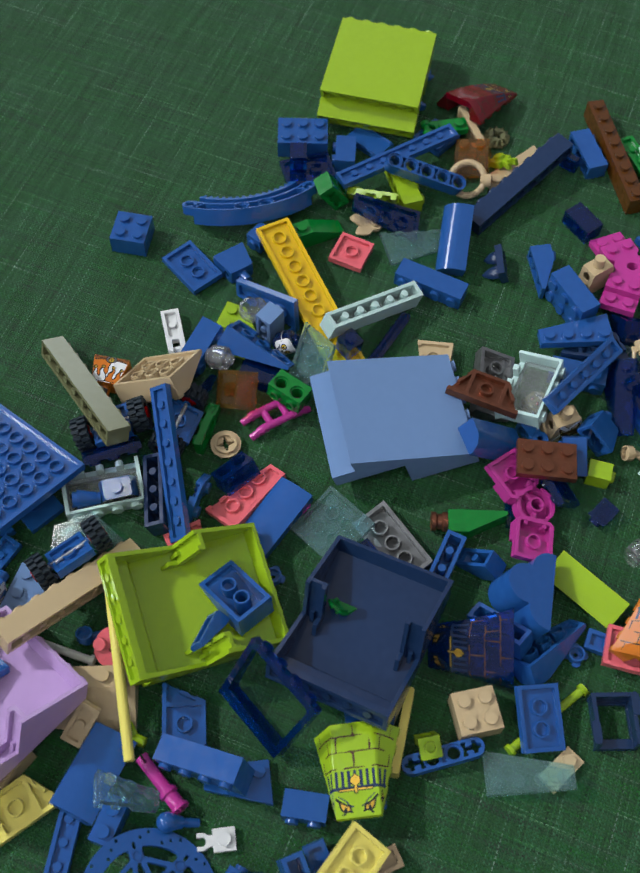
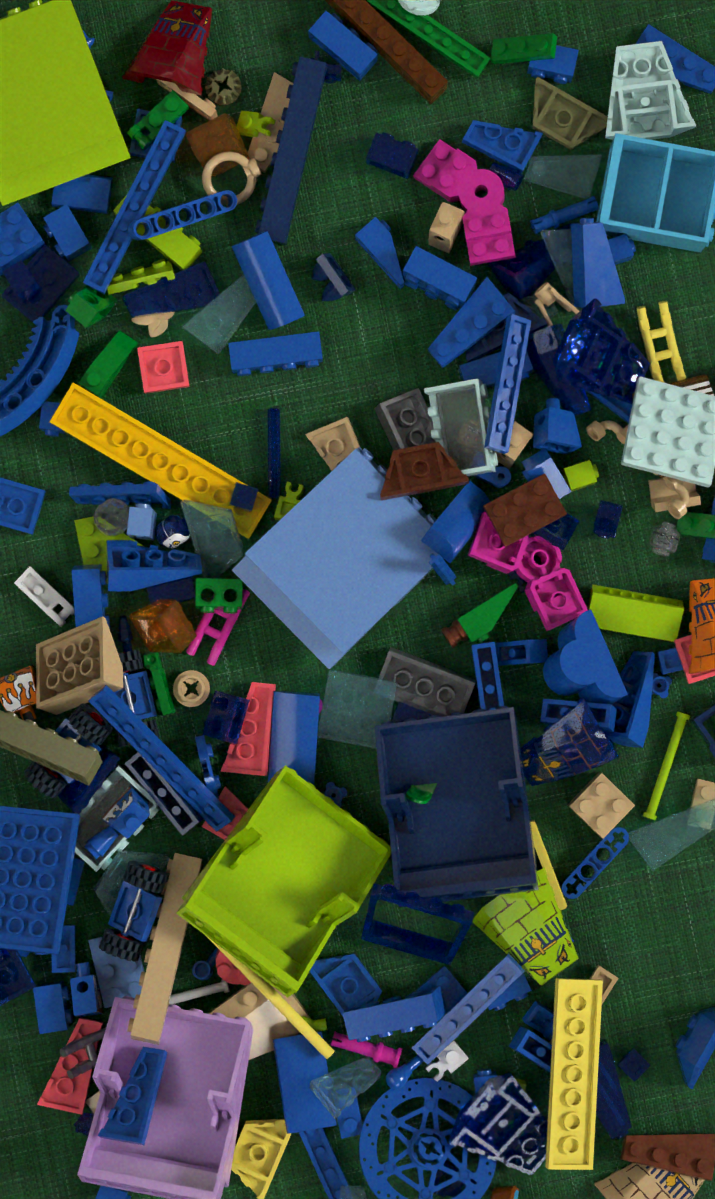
camera: 30 degrees left, 25 degrees up
(80, 723) = (261, 1049): tan plate -> none
(210, 627) = (318, 894): blue slope -> none
(219, 357) = (121, 604): clear head -> none
(234, 263) = (50, 469): blue torso -> none
(237, 597) = (318, 845): blue slope -> none
(264, 801) = (468, 1009): none -> blue plate
(371, 309) = (239, 439): light aqua brick -> none
(429, 745) = (576, 861): lime bracket -> none
(460, 462) = (442, 569): none -> blue axle
(539, 718) = (660, 774): blue plate -> none

